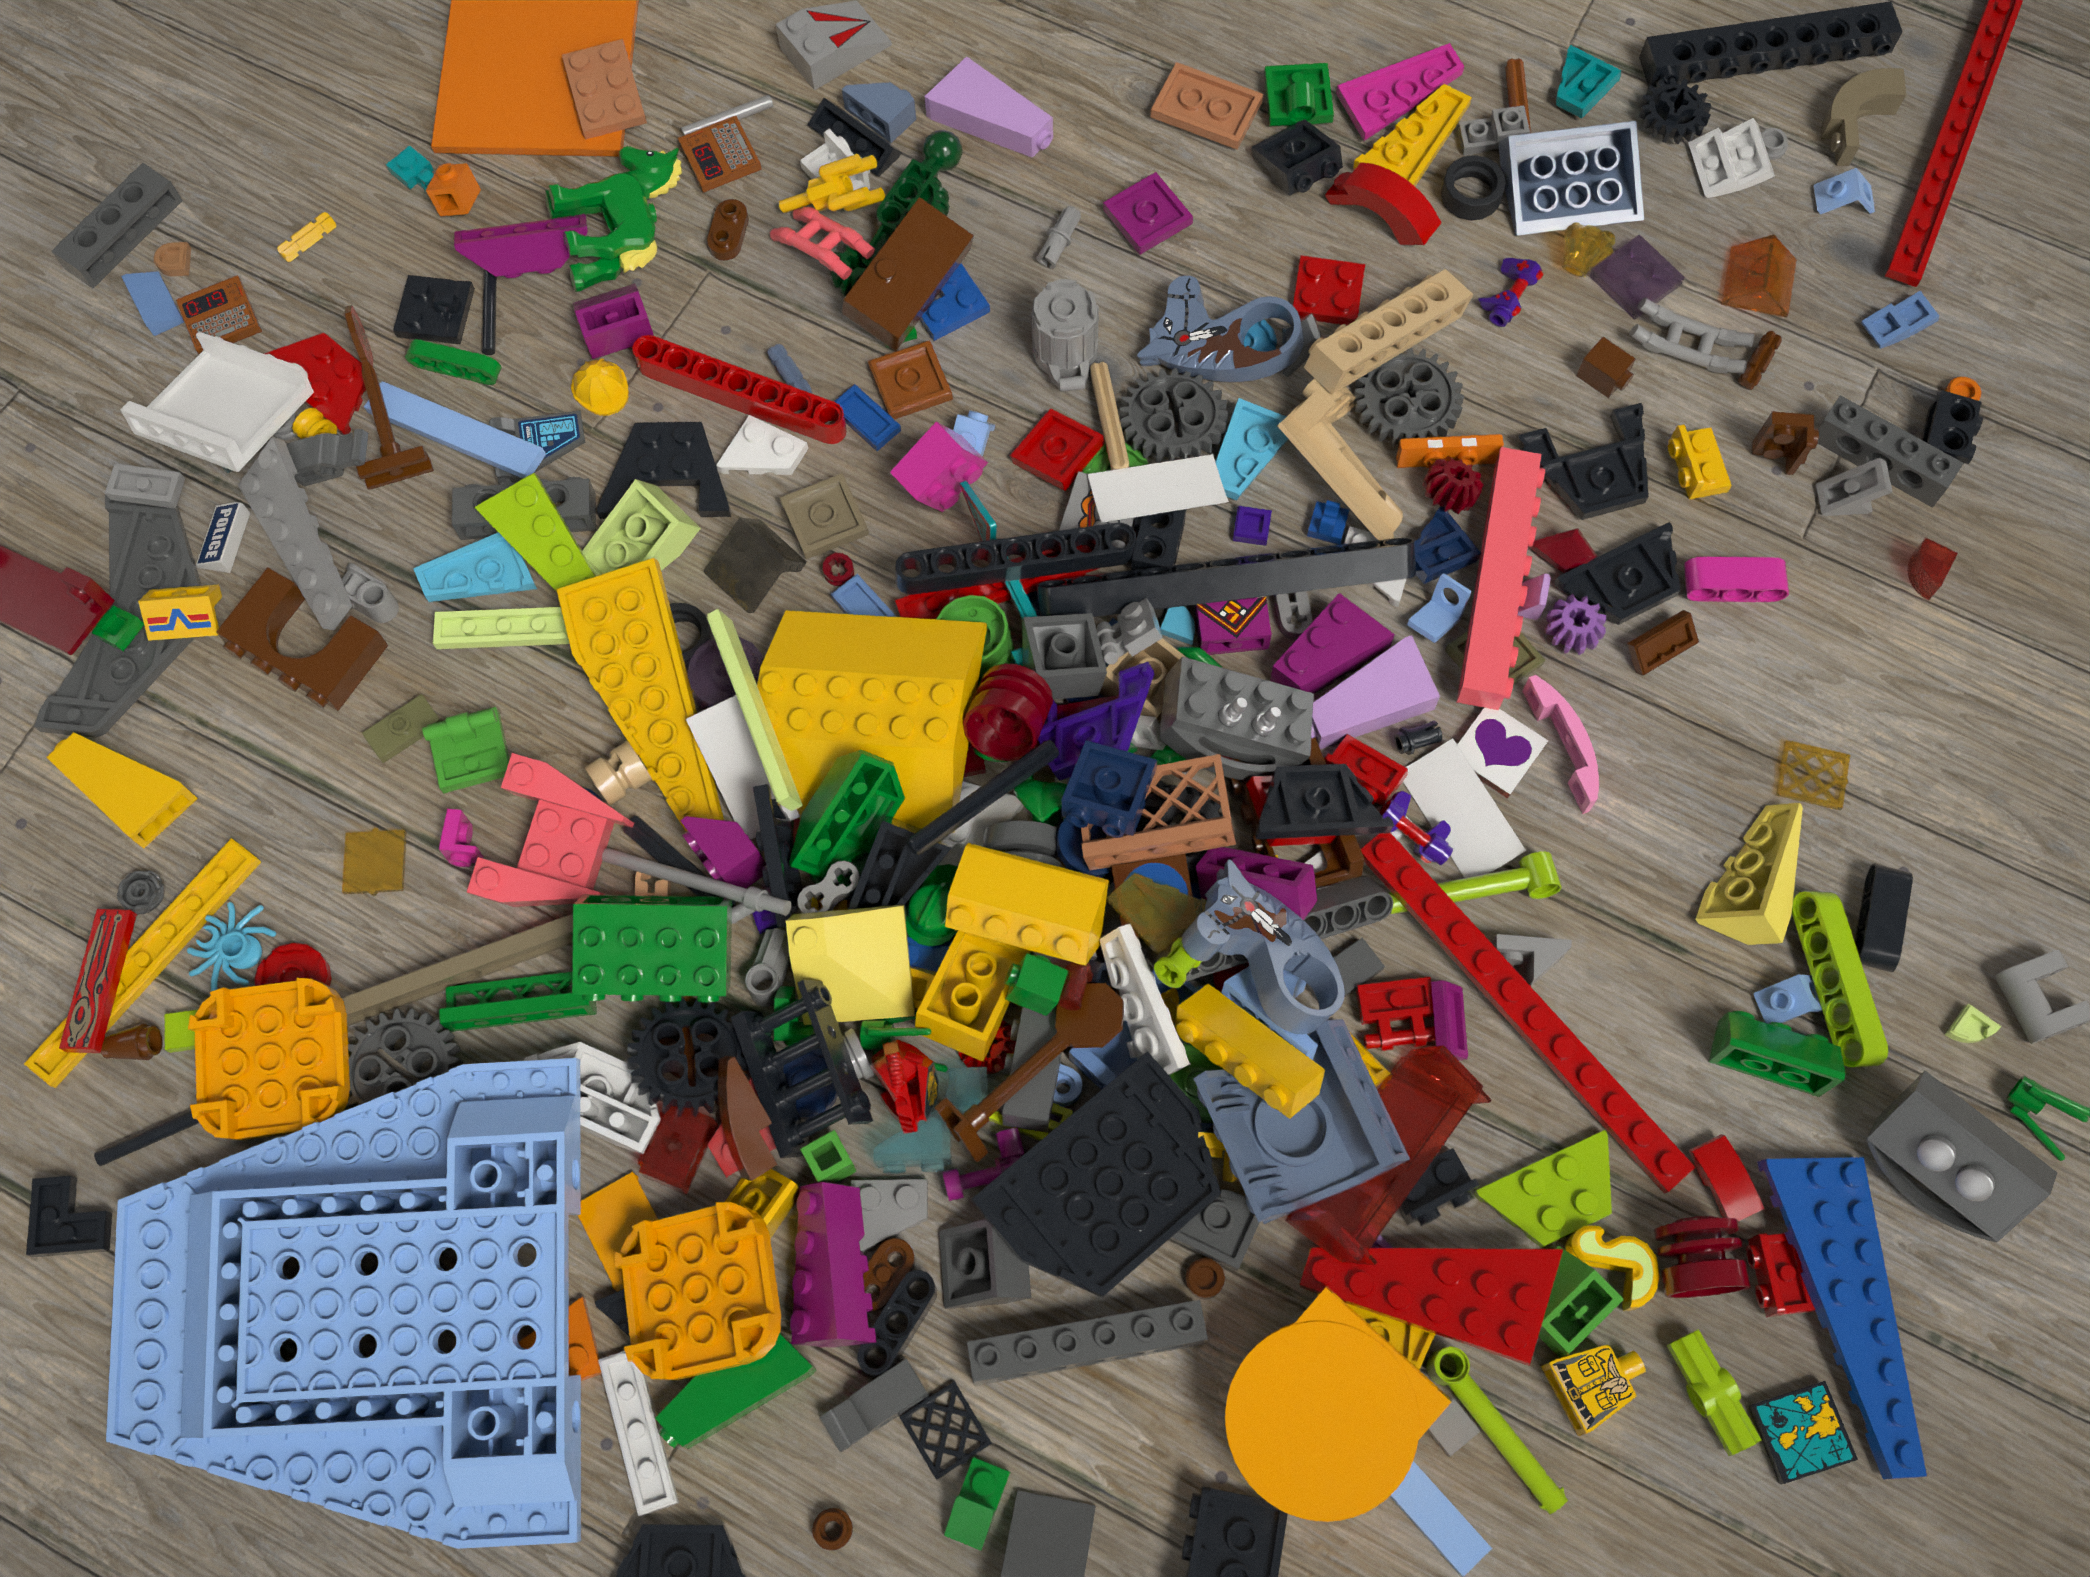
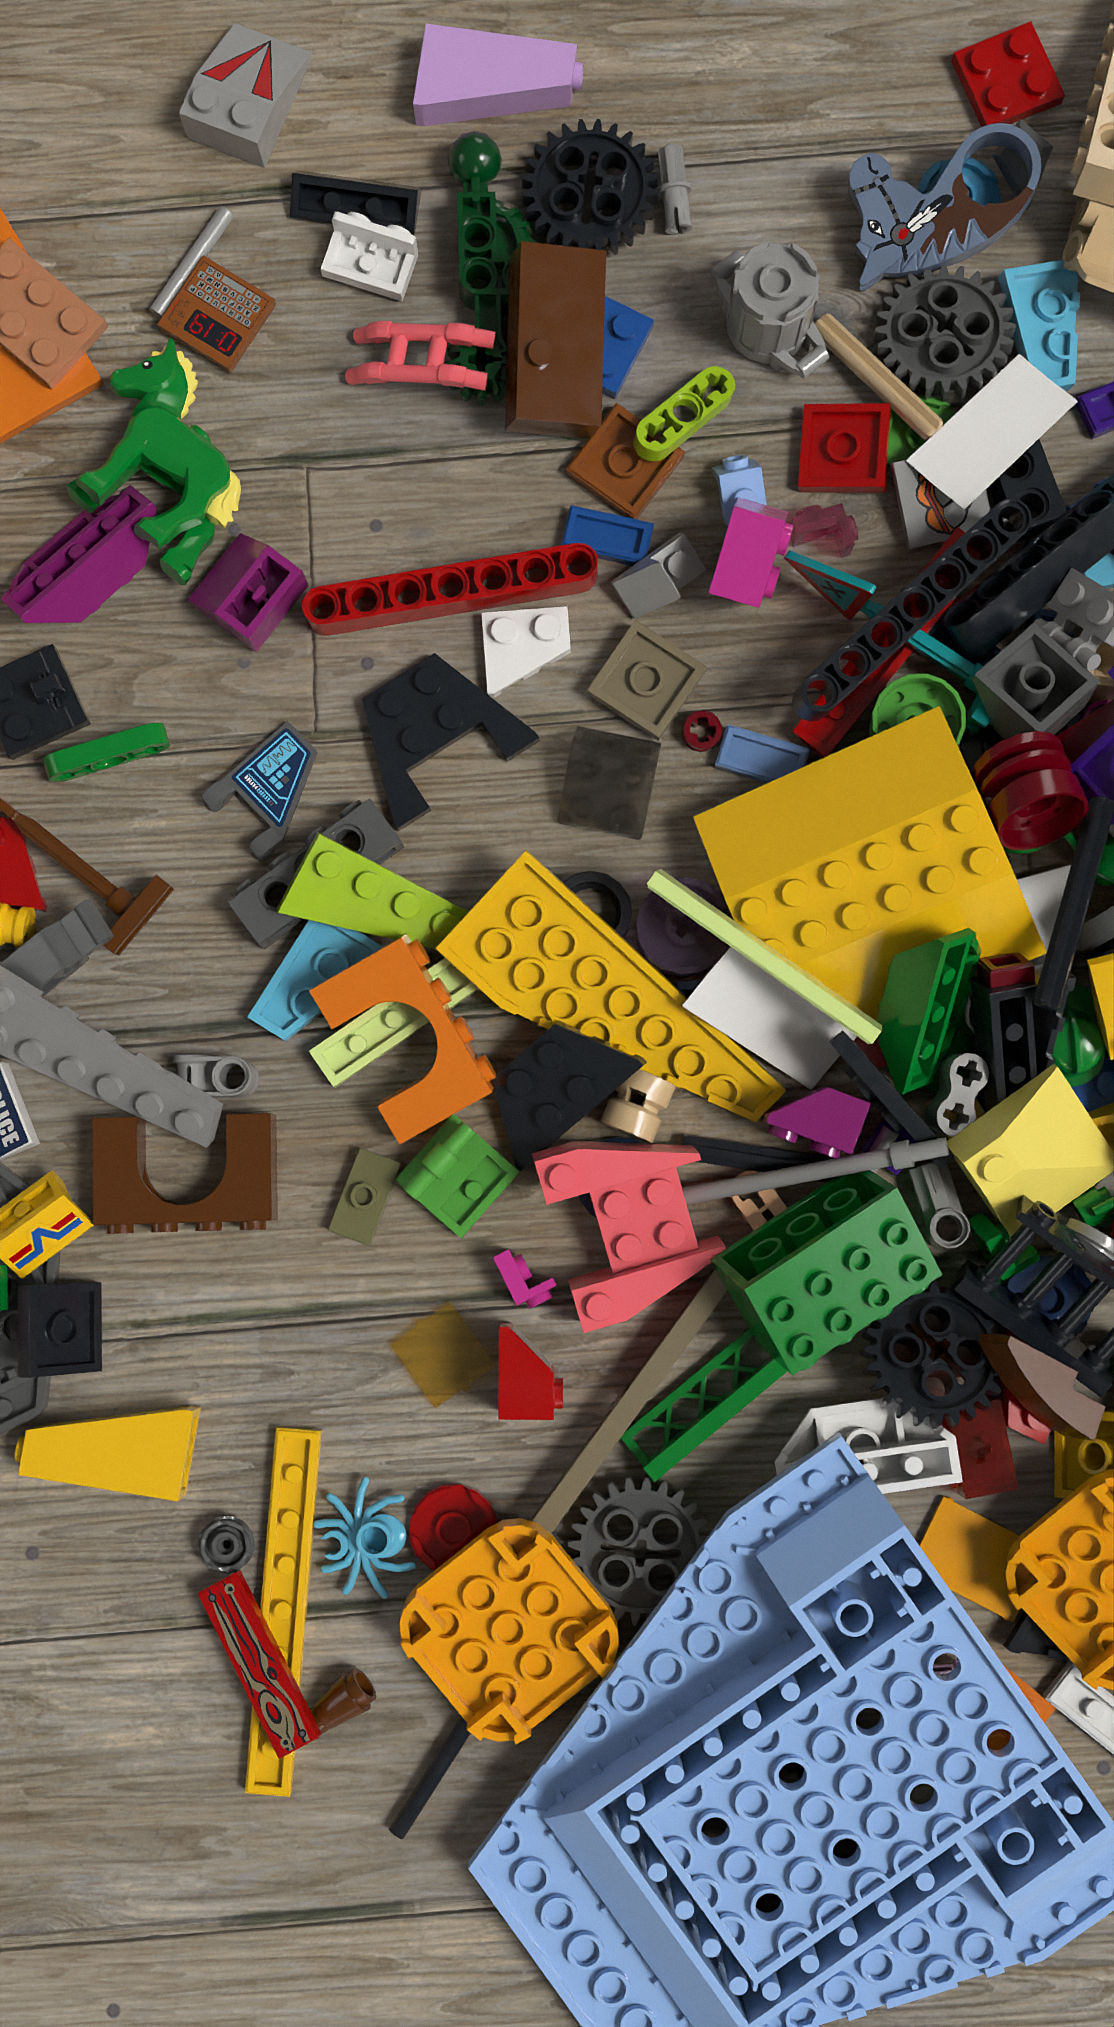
camera: 30 degrees left, 15 degrees up
(56, 1227) = (410, 1927): black plate -> none
(145, 684) = (59, 1329): none -> black hinge
(177, 1035) = (382, 1652): lime tile -> none
(407, 897) = (525, 1379): none -> red slope
(460, 432) = (180, 830): light blue tile -> none
(489, 313) = (99, 669): black bar -> none
(515, 678) = (400, 975): none -> orange arch
(574, 726) = (556, 1086): none -> black wing
(600, 387) = (288, 679): yellow piece -> none
(640, 528) = (467, 830): yellowish green slope -> none
(730, 227) = (292, 401): reddish brown plate -> none
(787, 368) = (485, 533): sand blue axle -> none
(834, 187) = (398, 283): yellow plant -> none
(874, 456) = (658, 576): none -> light grey slope
(881, 107) = (364, 146): sand blue slope -> none
(910, 818) = (1005, 970): none -> dark red tile
(958, 379) = (677, 430): none -> lime beam
(1004, 206) = (552, 185): none -> black gear
(1007, 485) = (817, 523): none -> clear pink bracket
(1147, 213) = (752, 100): magenta plate -> none

